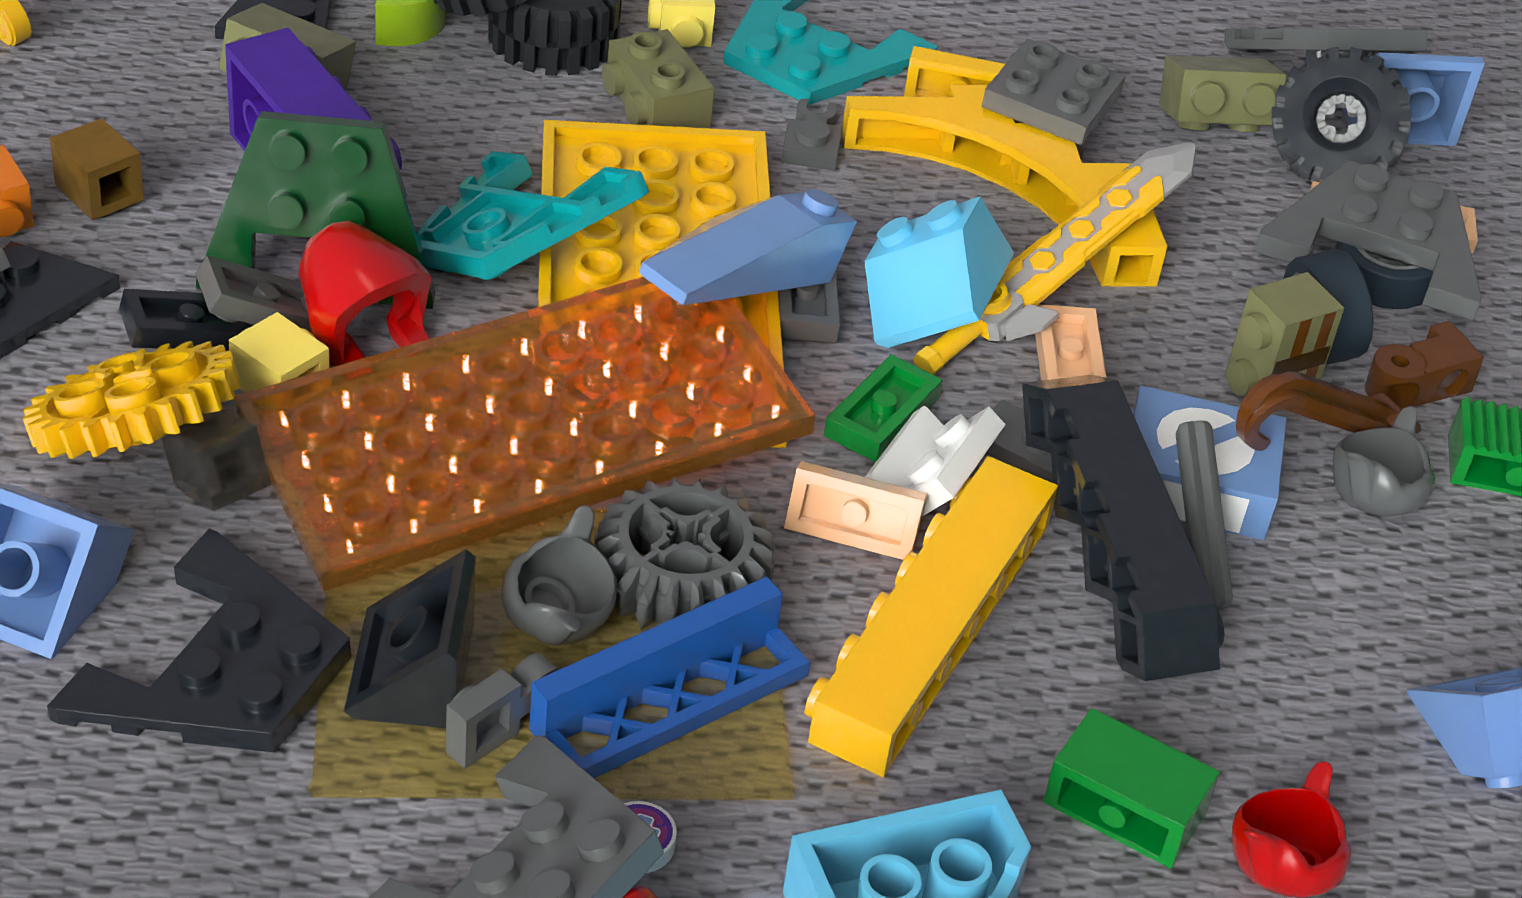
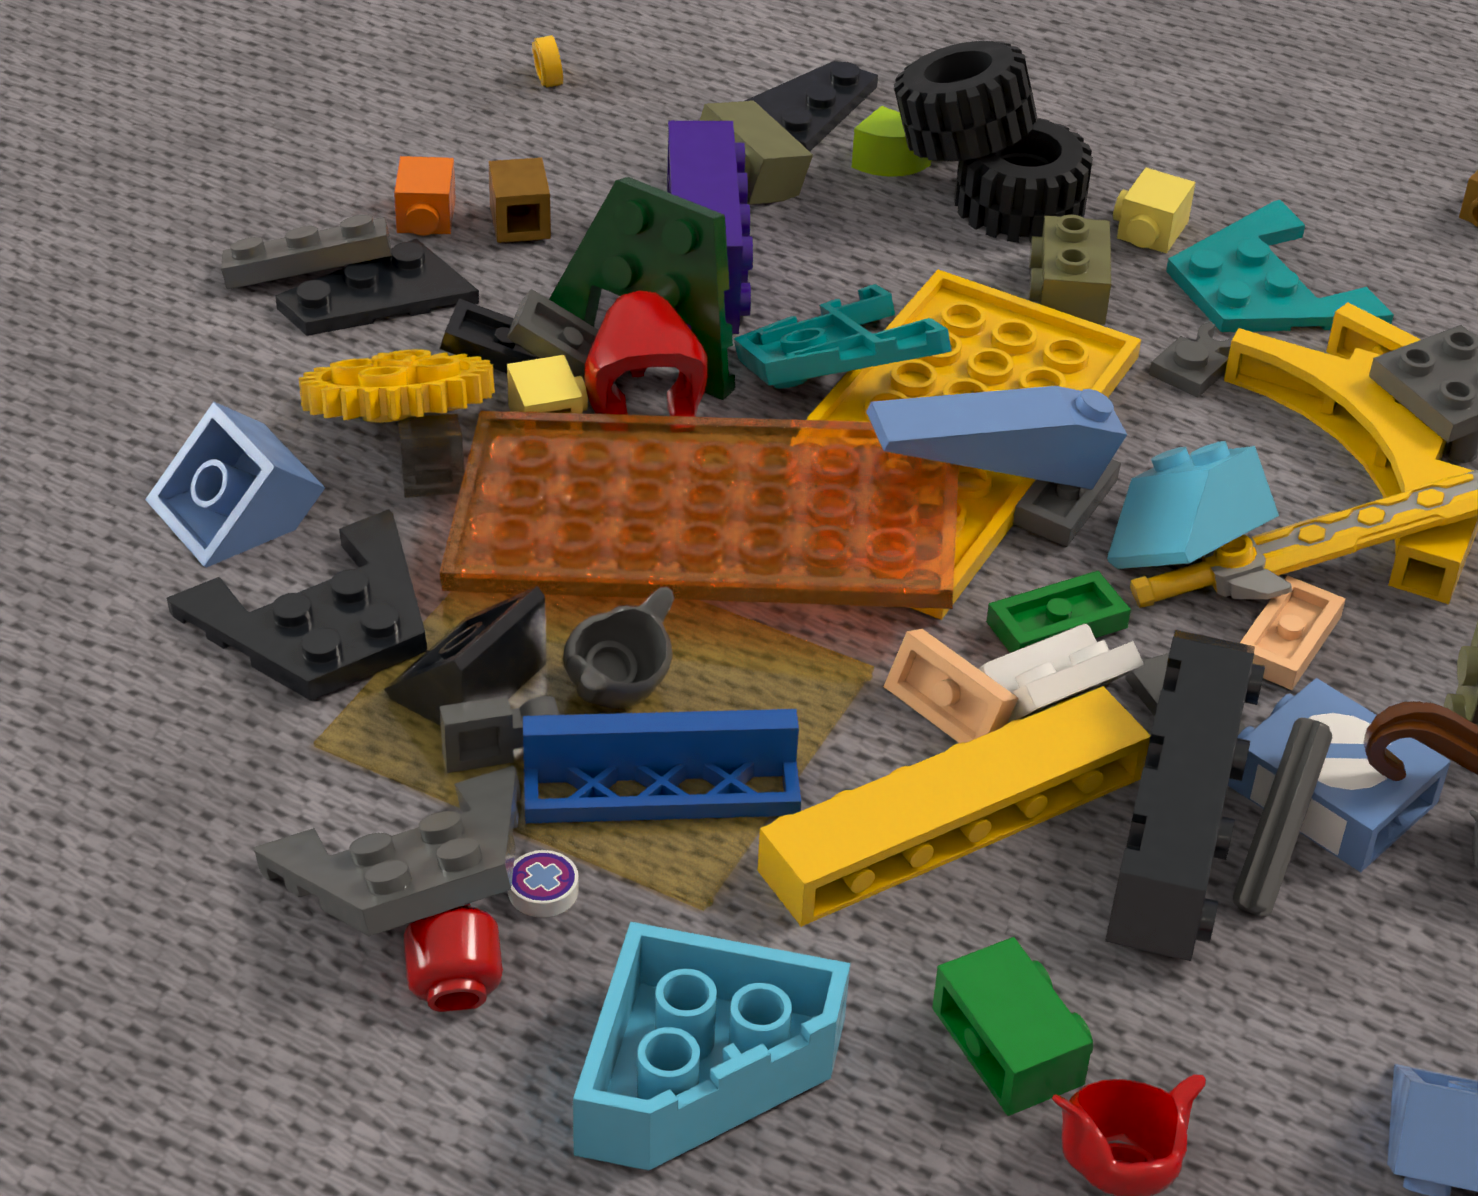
camera: 35 degrees right, 0 degrees up
(683, 543) = (756, 661): dark grey gear -> none

